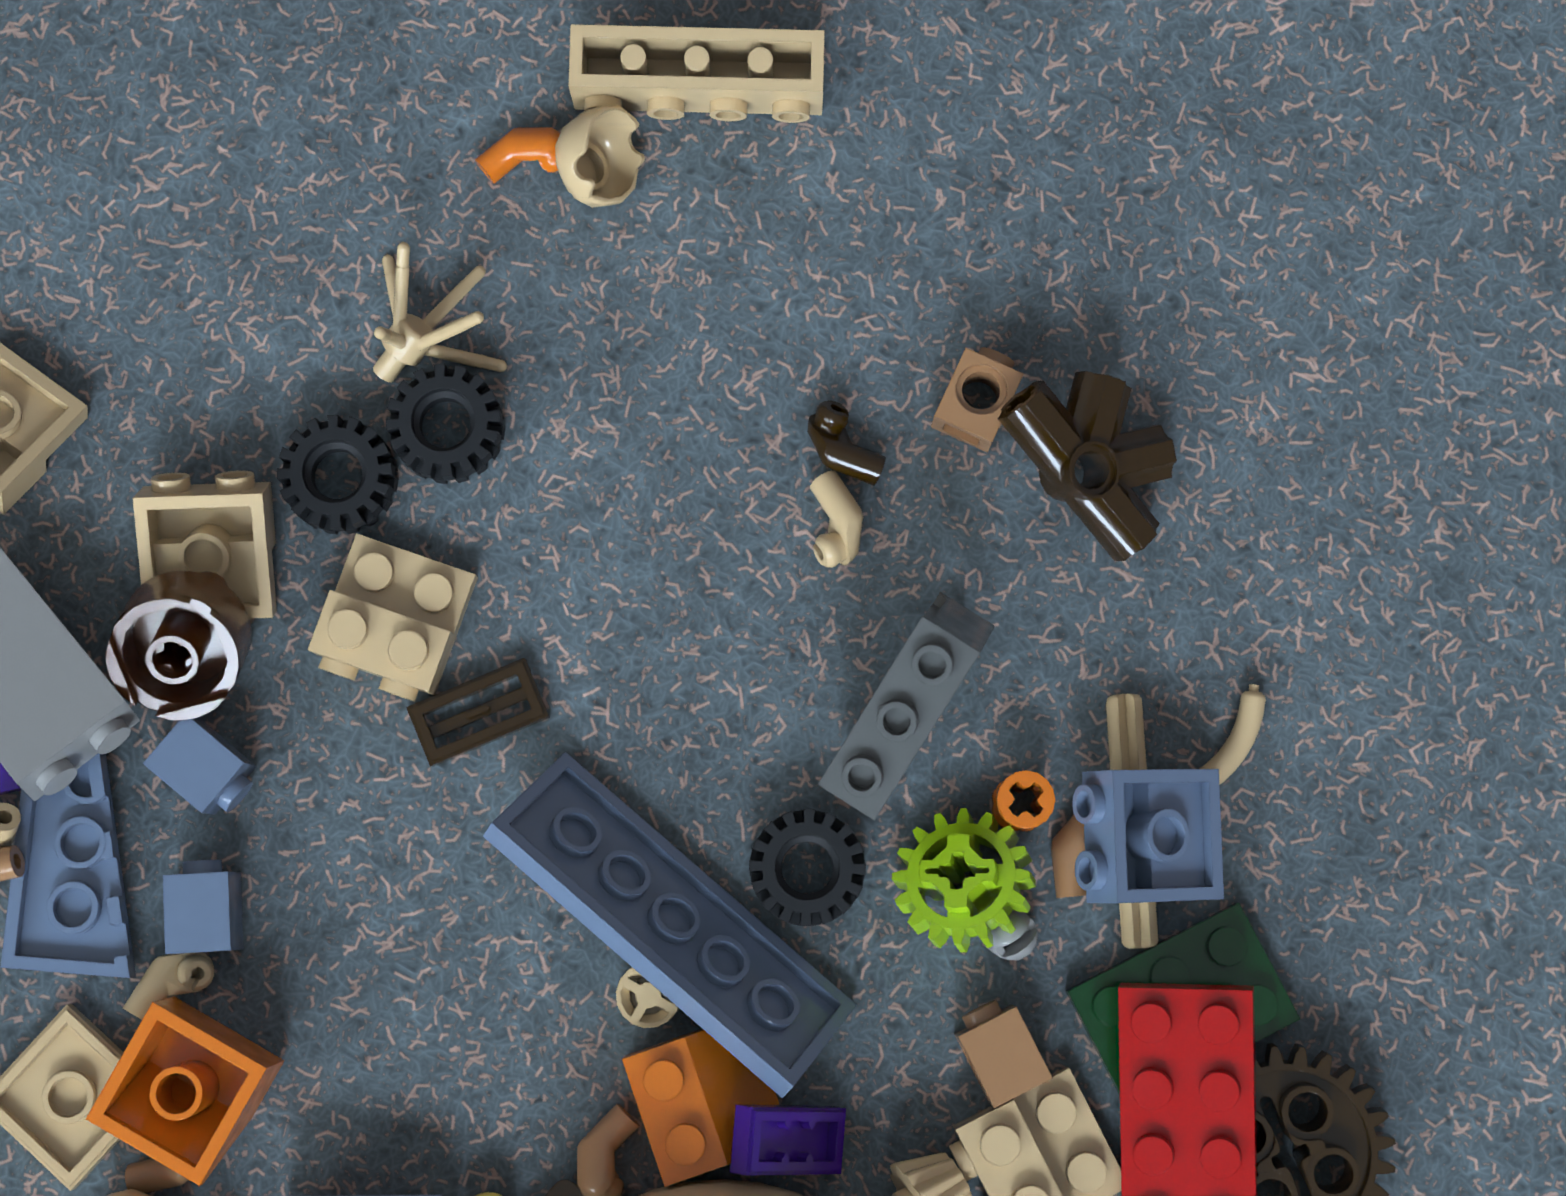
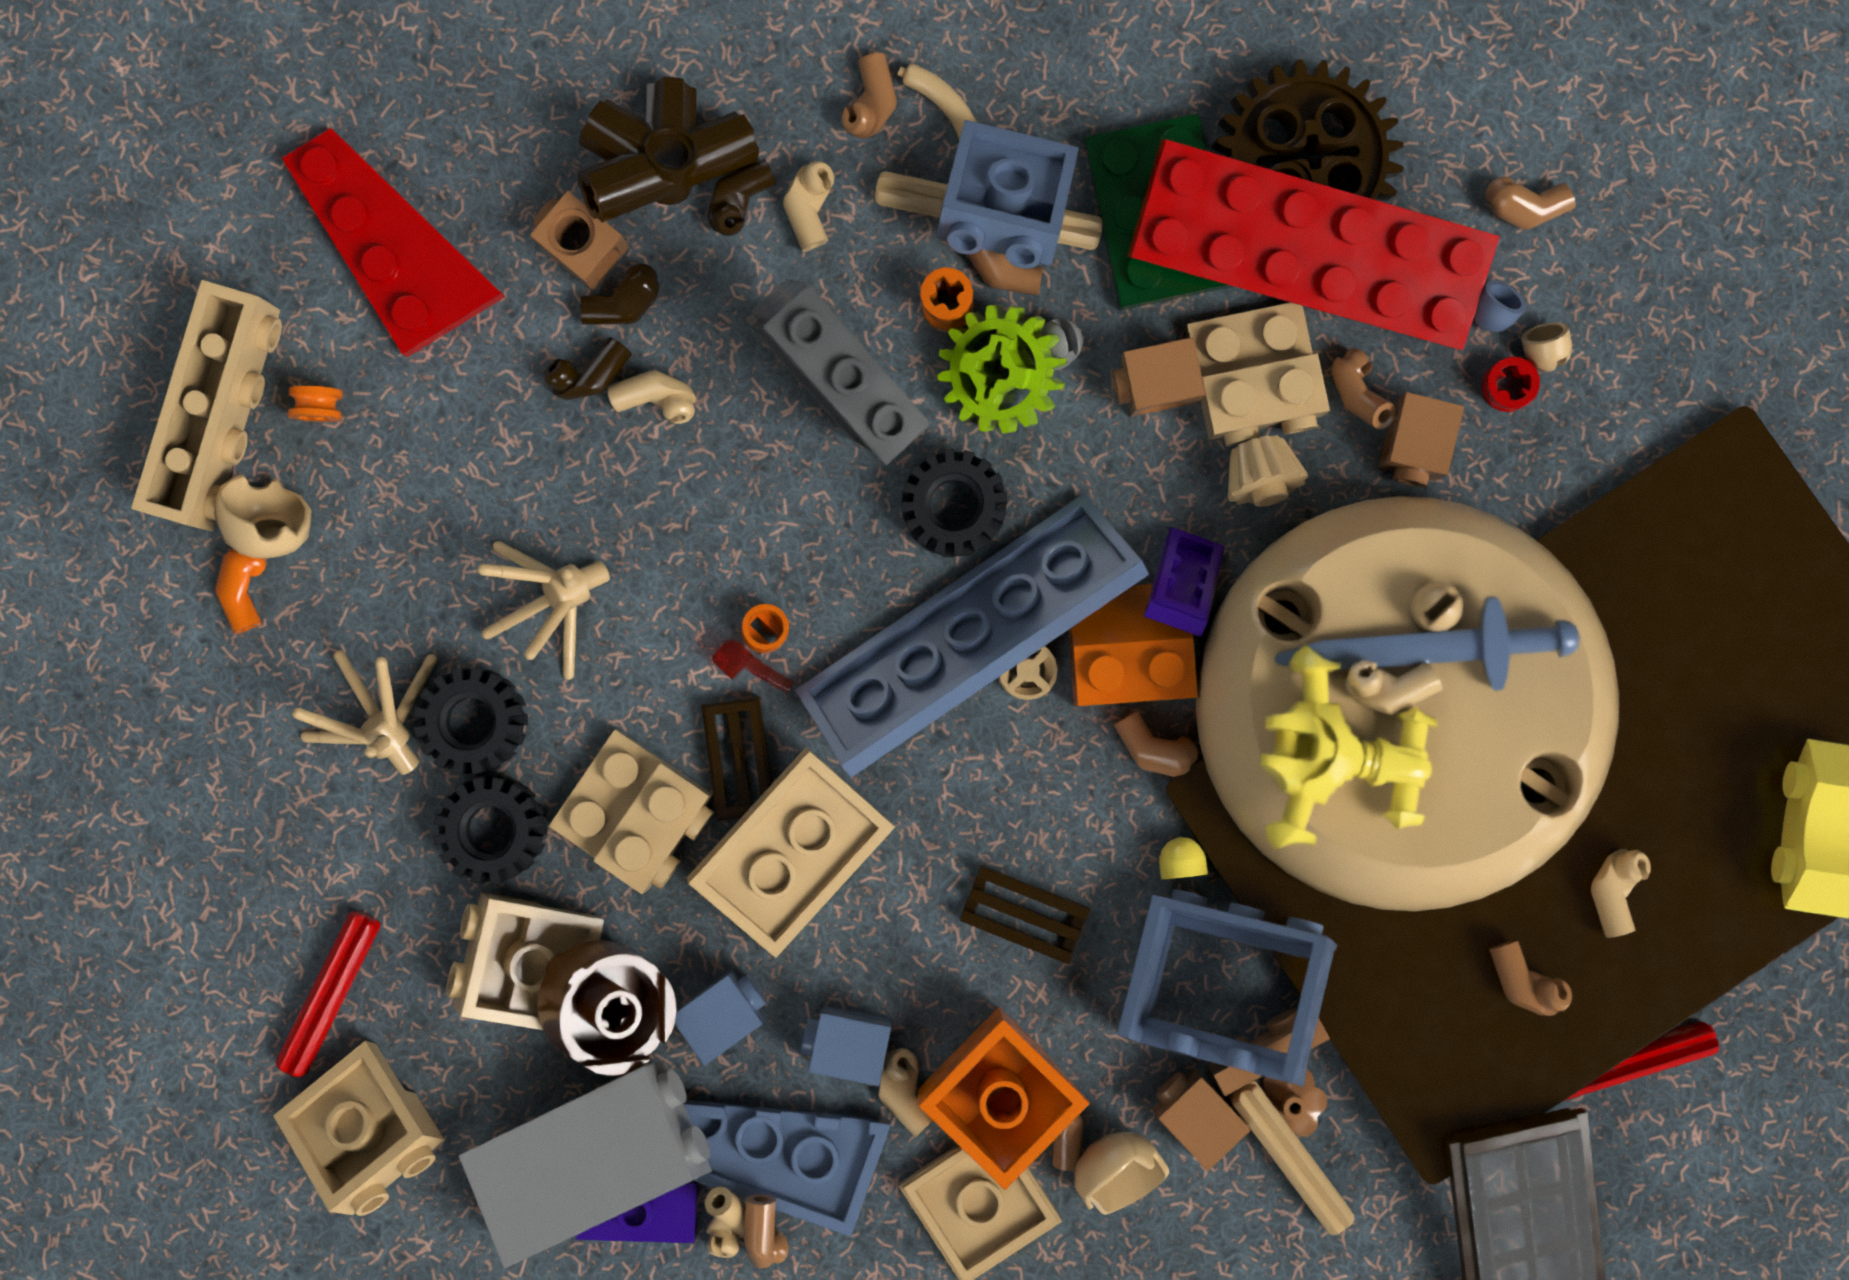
camera: 70 degrees left, 5 degrees up
(127, 354) = (327, 994): none -> red axle
(381, 1118) = (1071, 933): none -> dark brown tile
(391, 794) = (790, 852): none -> tan plate
(584, 679) = (735, 656): none -> clear red hand
(605, 482) = (562, 591): none -> tan plant
(632, 709) = (772, 620): none -> orange hinge
(733, 176) = (315, 403): none -> orange bush
(907, 220) = (395, 254): none -> red wing
(927, 466) = (628, 301): none -> dark brown arm
(1071, 545) = (732, 196): none -> dark brown arm
(1086, 622) = (804, 201): none -> tan arm
(1213, 669) = (877, 100): none -> medium nougat arm

